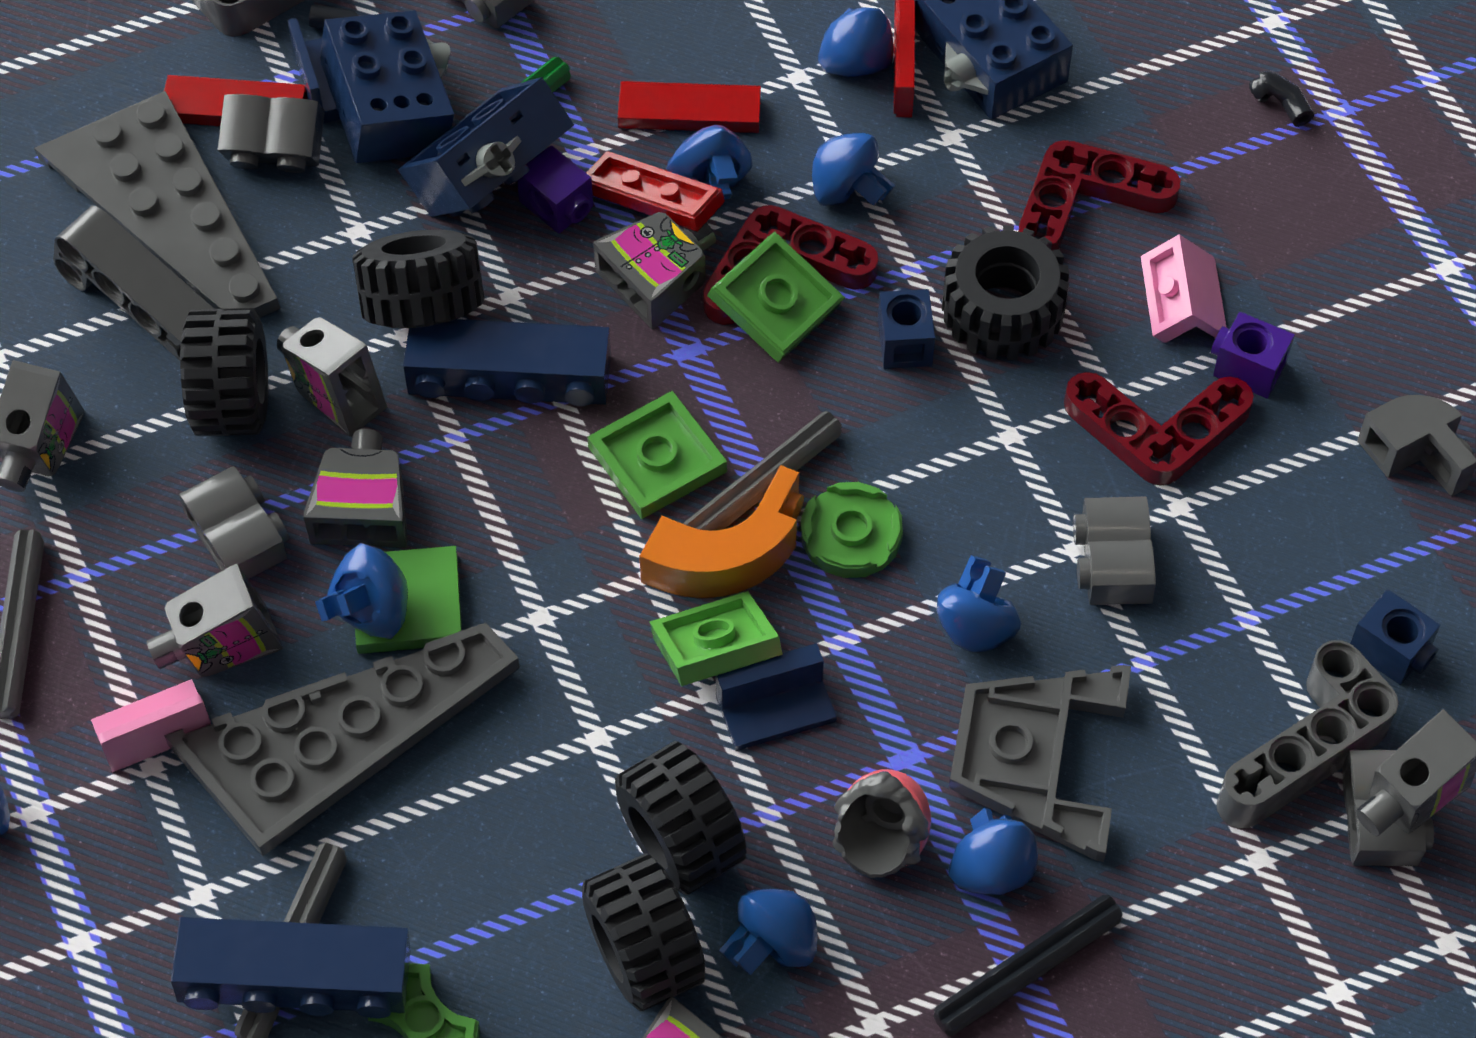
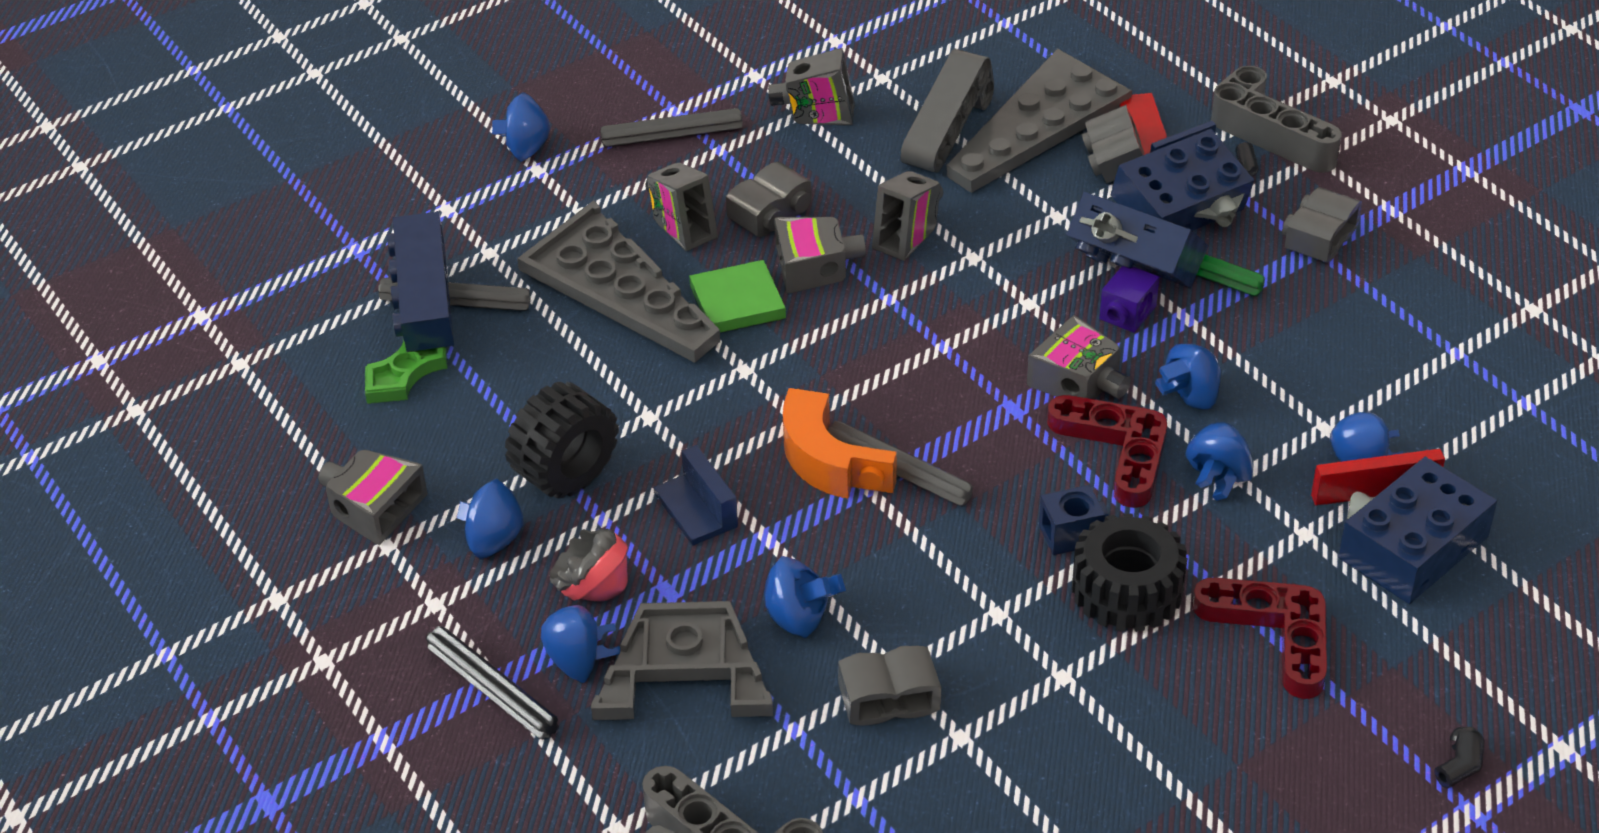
camera: 80 degrees right, 15 degrees down
(140, 727) = (609, 195): bright pink panel -> none
(224, 372) = (872, 132): black tyre -> none
(367, 593) = (721, 260): blue piece -> none
(418, 278) = (997, 227): black tyre -> none
(509, 361) = (955, 303): dark blue brick -> none
(644, 932) = (462, 435): black tyre -> none
(654, 190) = (1148, 348): red tile -> none
(657, 454) = (904, 402): bright green tile -> none
(688, 106) = (1255, 365): red tile -> none
(715, 638) = (733, 448): bright green tile -> none
(776, 296) = (1073, 437): bright green tile -> none
(851, 530) = (868, 524): bright green tile -> none
(1152, 437) = (1026, 712): dark red beam -> none
(1182, 289) = (1192, 708): bright pink panel -> none
(1269, 351) = (1132, 758): dark purple brick -> none

